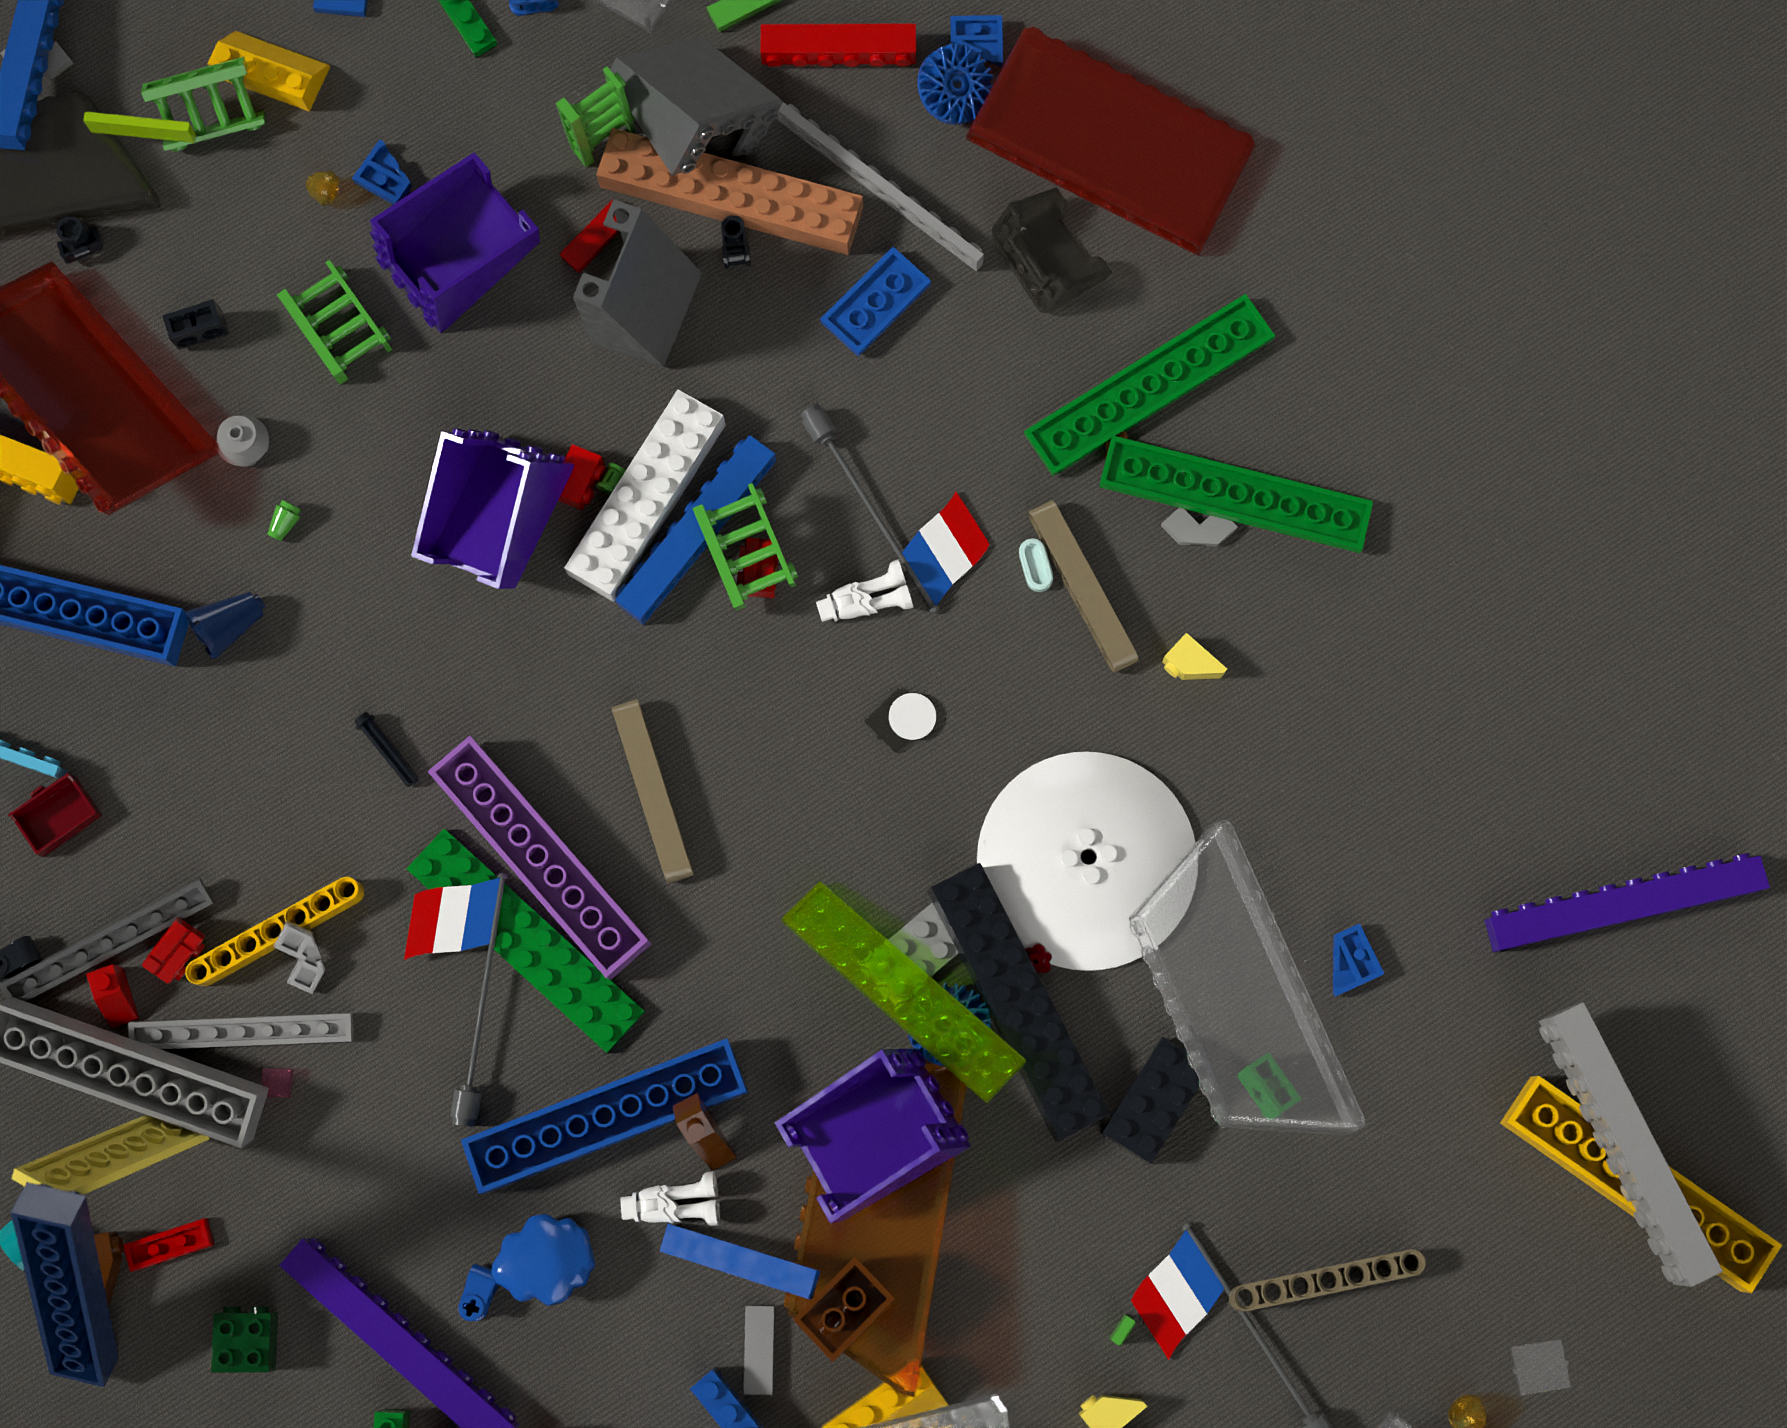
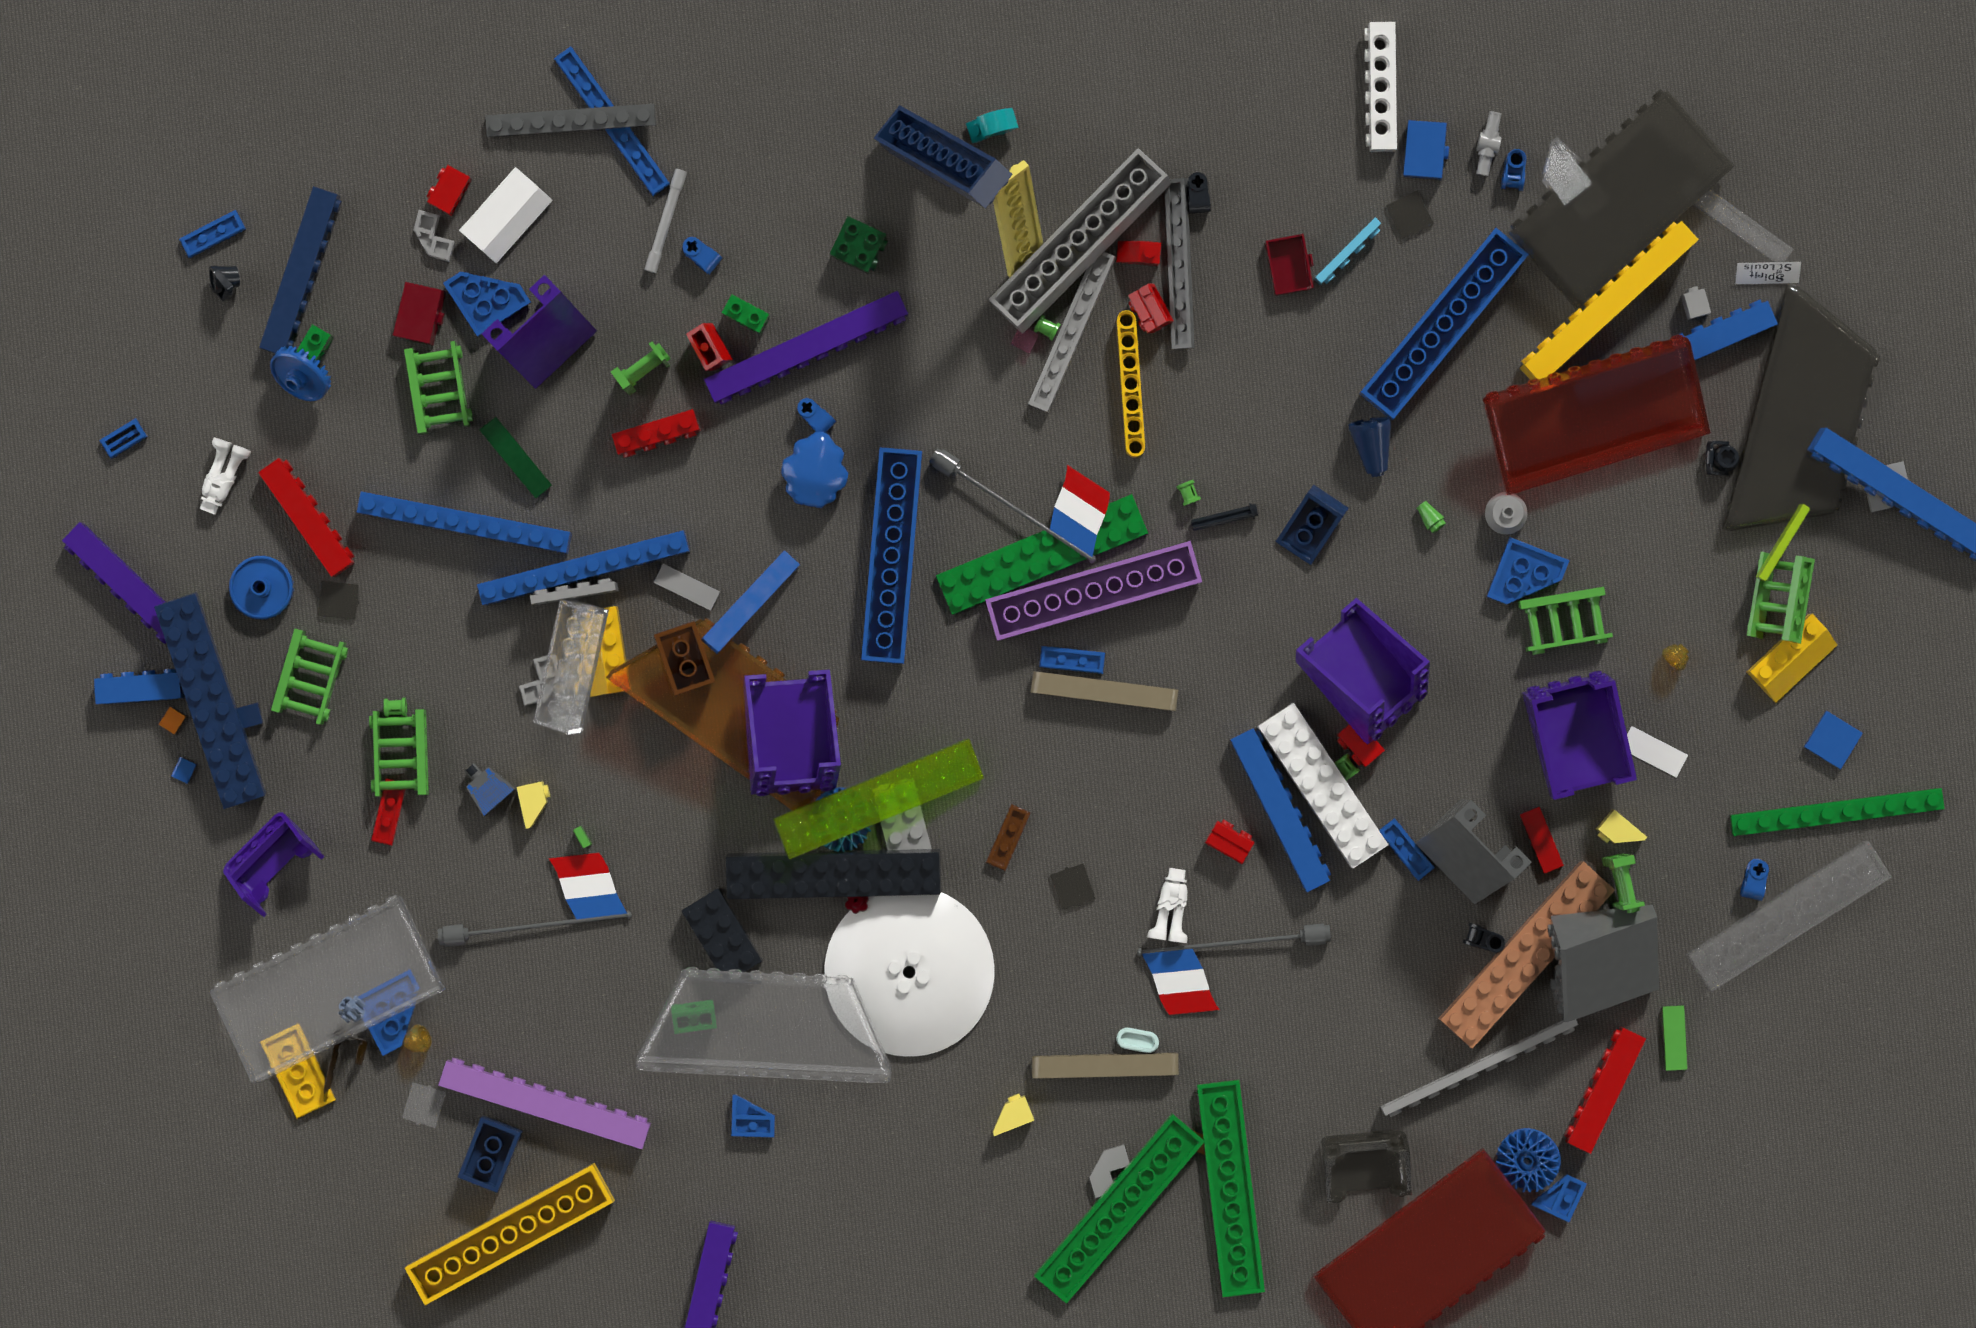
camera: 105 degrees right, 10 degrees up
(168, 1244) = (948, 220): red tile -> none
(195, 324) = (1610, 517): black brick -> none
(250, 1062) = (1047, 327): none -> bright green bush
(300, 391) = (1524, 571): none -> blue plate
(302, 945) = (1110, 399): light grey tile -> none
(350, 646) = (1312, 524): none -> dark blue slope
(375, 804) = (1188, 492): none -> bright green bush
(382, 175) = (1664, 704): blue wing -> none
(442, 151) = (1655, 752): none -> white sticker
(544, 160) = (1618, 829): none -> light yellow slope
(633, 846) = (1072, 659): none -> blue tile
(658, 1202) = (815, 564): white piece -> none
(676, 372) = (1406, 849): none -> blue tile
(703, 1132) = (848, 617): reddish brown slope -> none
(718, 543) = (1257, 820): bright green fence -> none
(875, 301) = (1390, 1020): blue plate -> none
(875, 820) = (1008, 837): none -> reddish brown tile
(912, 716) = (1070, 898): white sticker -> none
(1340, 1278) = (546, 1000): dark tan beam -> none
(1463, 1220) = (545, 1104): none -> medium lavender brick
(1558, 1255) = (490, 1154): none -> dark blue brick
(1629, 1146) = (538, 1235): light grey brick -> none

